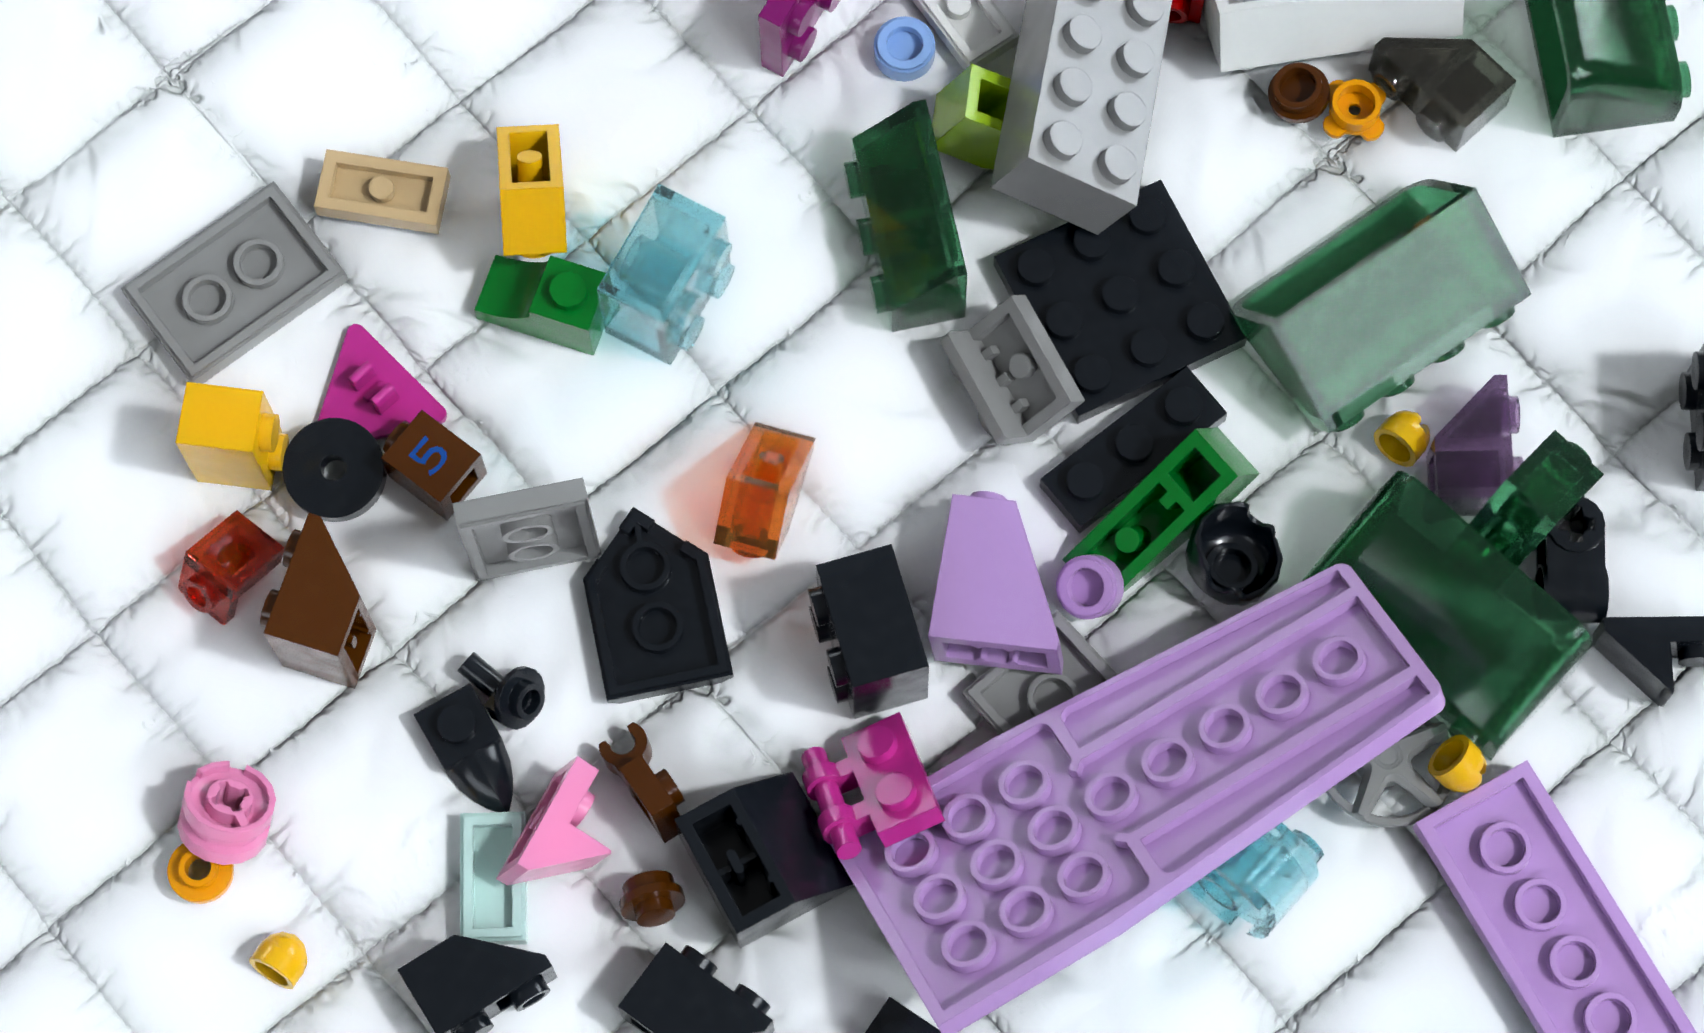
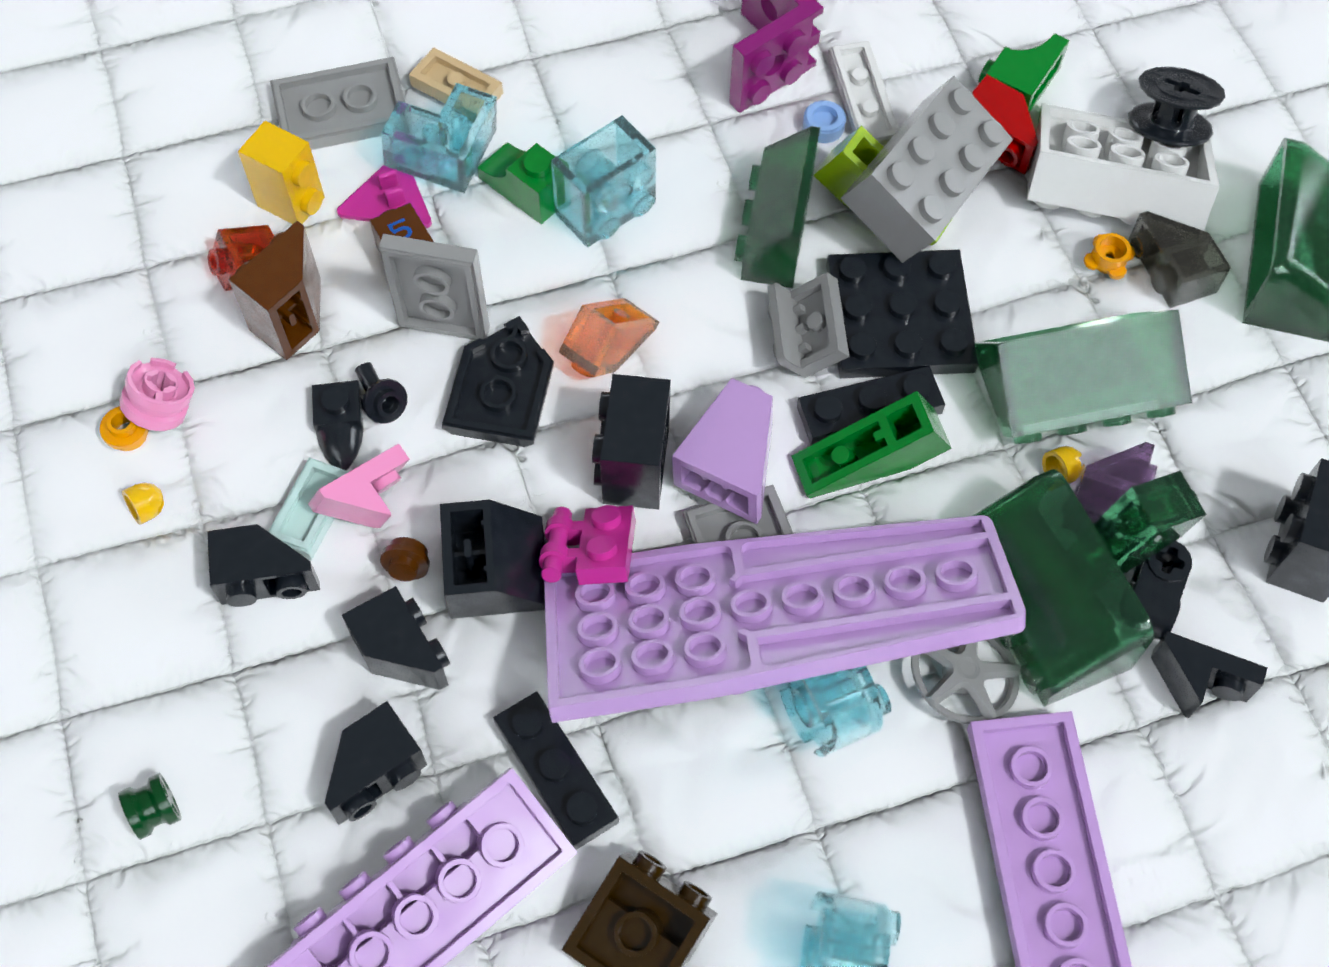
camera: 20 degrees right, 10 degrees down
(314, 449) = (335, 210): black piece -> none
(417, 306) = (442, 145): none -> clear light blue brick
(531, 190) = (543, 105): yellow brick -> none
(654, 793) = (438, 486): reddish brown plate -> none
(1090, 586) = (802, 477): lavender tile -> none
(1233, 554) = (911, 489): black hair -> none
(1299, 93) = (1075, 231): reddish brown plate -> none
(1458, 764) = (1018, 694): yellow hinge -> none

